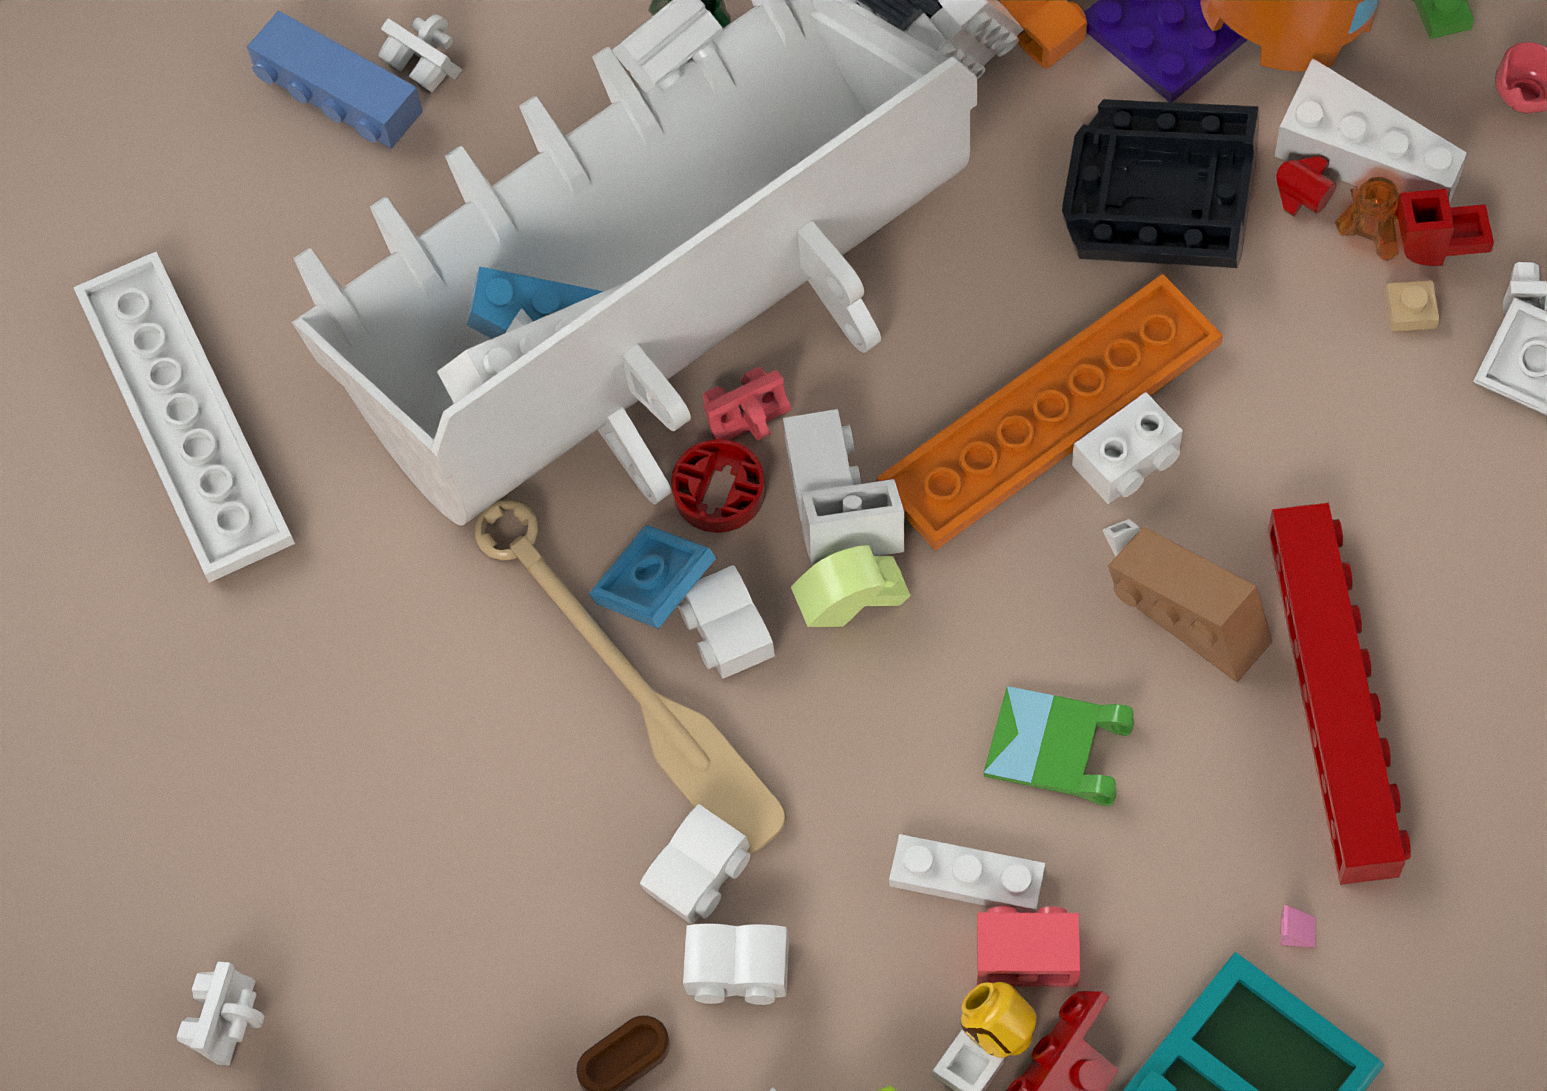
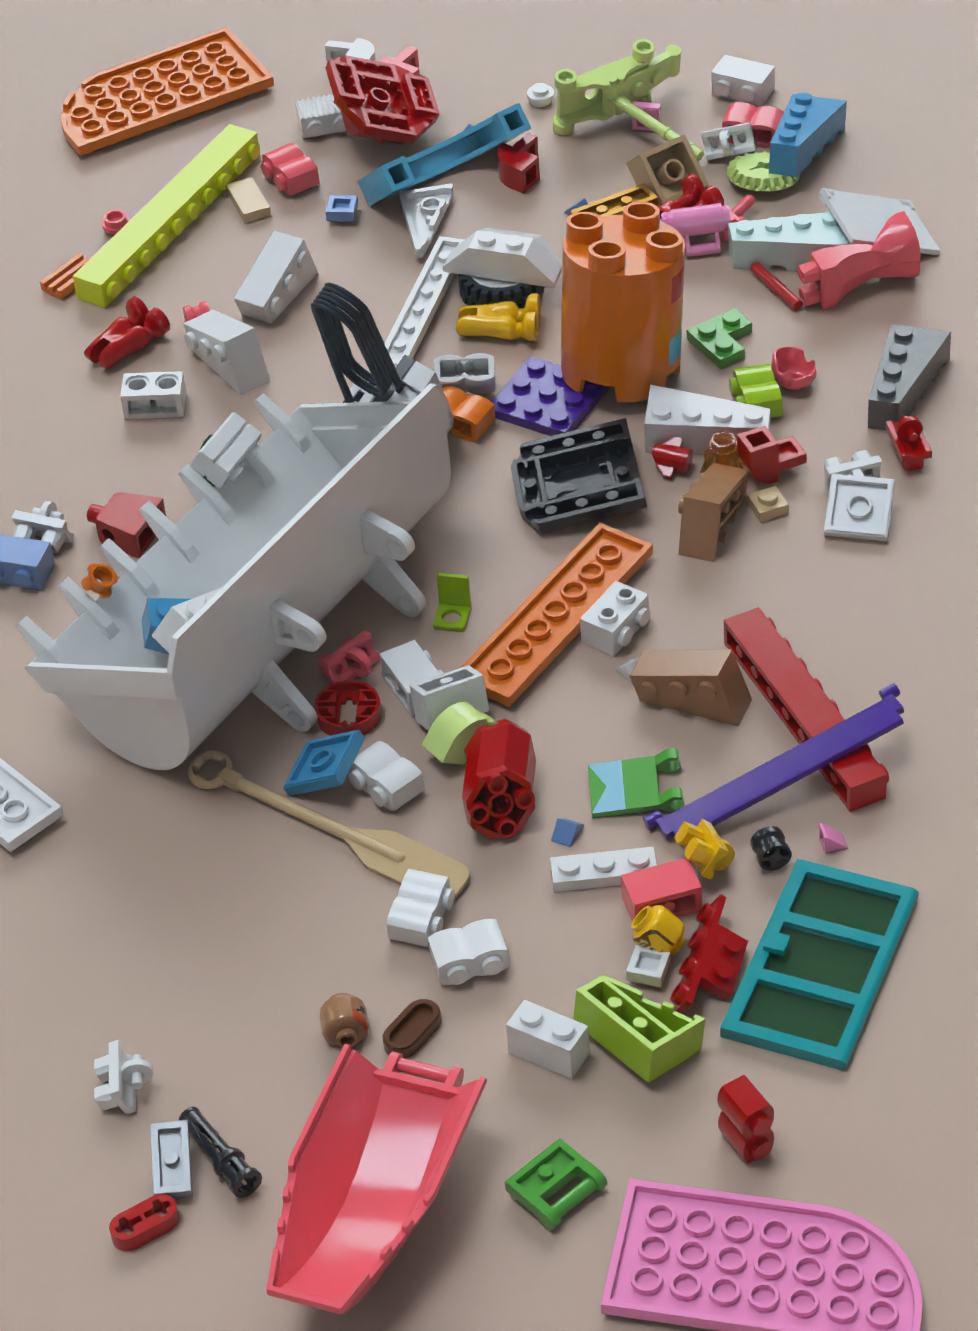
camera: 20 degrees left, 20 degrees down
(441, 214) = (103, 573): none -> orange plate
(535, 67) = (124, 523): none -> torso
(536, 1019) = (344, 1020): none -> medium nougat head
(870, 689) = (499, 779): none -> red brick
(919, 340) = (453, 598): none -> lime bracket
(940, 789) = (566, 831): none -> medium blue piece
(1104, 916) = (705, 847): none -> yellow hips
(1203, 923) = (771, 848): none -> black wheel
(1266, 801) = (787, 767): none -> dark purple piece
(1324, 296) = (708, 508): none -> medium nougat wedge
(1463, 103) = (757, 387): none -> lime brick

